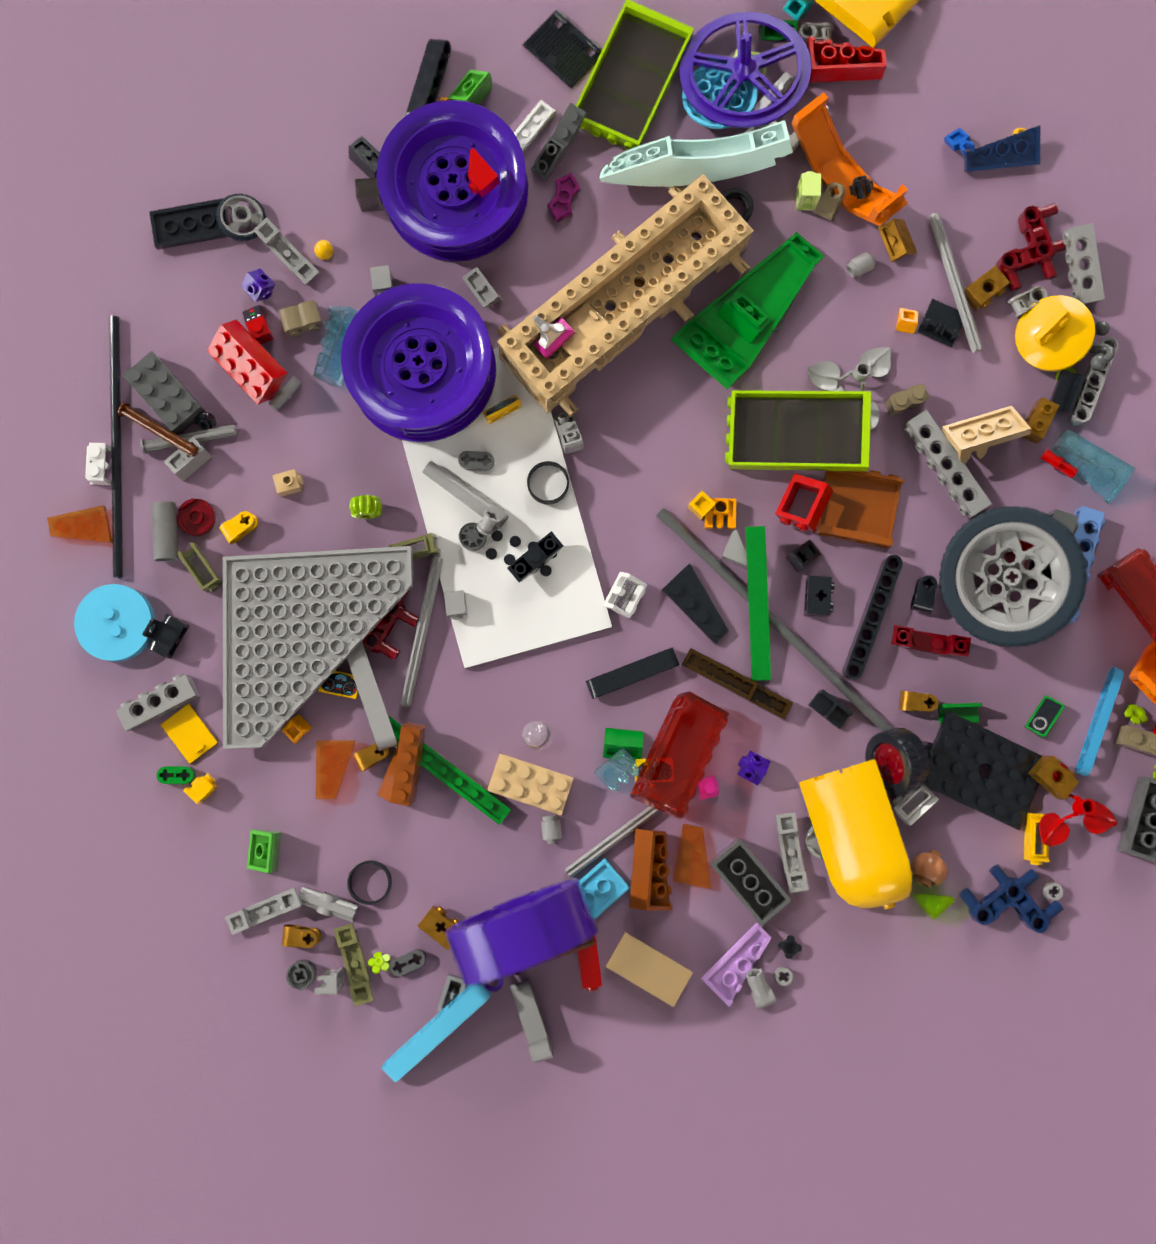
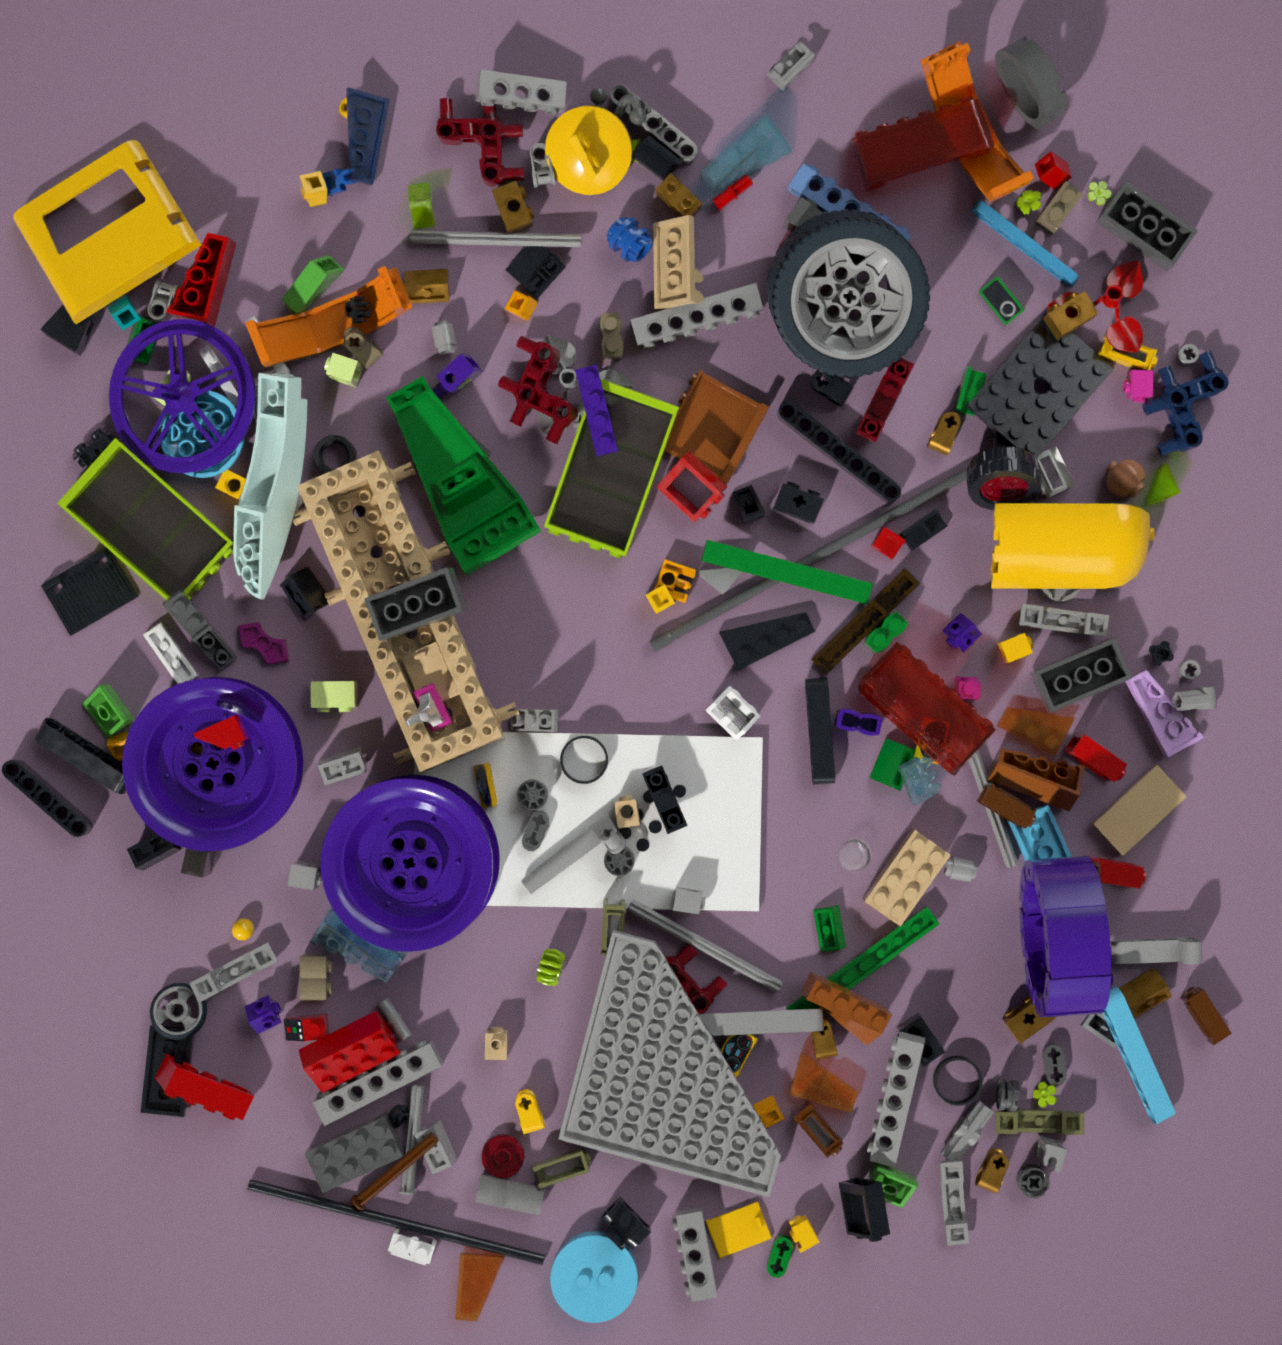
camera: 75 degrees left, 5 degrees up
(181, 254) = (203, 1089): none -> red wedge
(195, 360) = (330, 1112): none -> light grey brick
(236, 833) = (853, 1208): none -> black window
(290, 840) = (888, 1152): none -> light grey brick
(293, 775) = (818, 1130): none -> reddish brown window
(371, 931) = (1007, 1094): none -> dark grey wheel
(385, 54) = (36, 795): none -> black beam
(397, 841) = (923, 1031): none -> black brick
(467, 733) = (829, 928): none -> green slope
(489, 1082) = (1205, 1015): none -> reddish brown window
(492, 1023) = (1145, 992): none -> pearl gold panel
(506, 448) = (532, 794): none -> dark grey wheel
(511, 538) = (622, 821): none -> tan brick
(539, 264) = (334, 695): none -> yellowish green brick
(615, 216) = (305, 592): none -> black panel
(617, 851) = (1007, 806): none -> reddish brown window
(637, 293) = (416, 604): none -> dark grey brick
(649, 696) = (853, 721): none -> dark purple brick
(674, 11) = (86, 452): none -> black hinge
(683, 916) = (1096, 757): none -> red window
(687, 127) = (225, 481): none -> yellow brick
(738, 706) = (889, 628): none -> green brick
(755, 818) = (1016, 647): none -> yellow brick
(809, 682) = (887, 543): none -> red panel
(834, 284) = (464, 370): none -> dark purple torso
(844, 400) = (596, 410): none -> dark purple plate
(849, 347) = (535, 379): none -> dark red pin
(870, 146) = (312, 283): none -> bright green slope
(947, 124) = (314, 188): none -> yellow brick
(961, 216) = (421, 205): none -> clear neon green slope
(992, 389) = (626, 237): none -> blue piece
(1012, 856) = (1139, 385): none -> dark pink brick

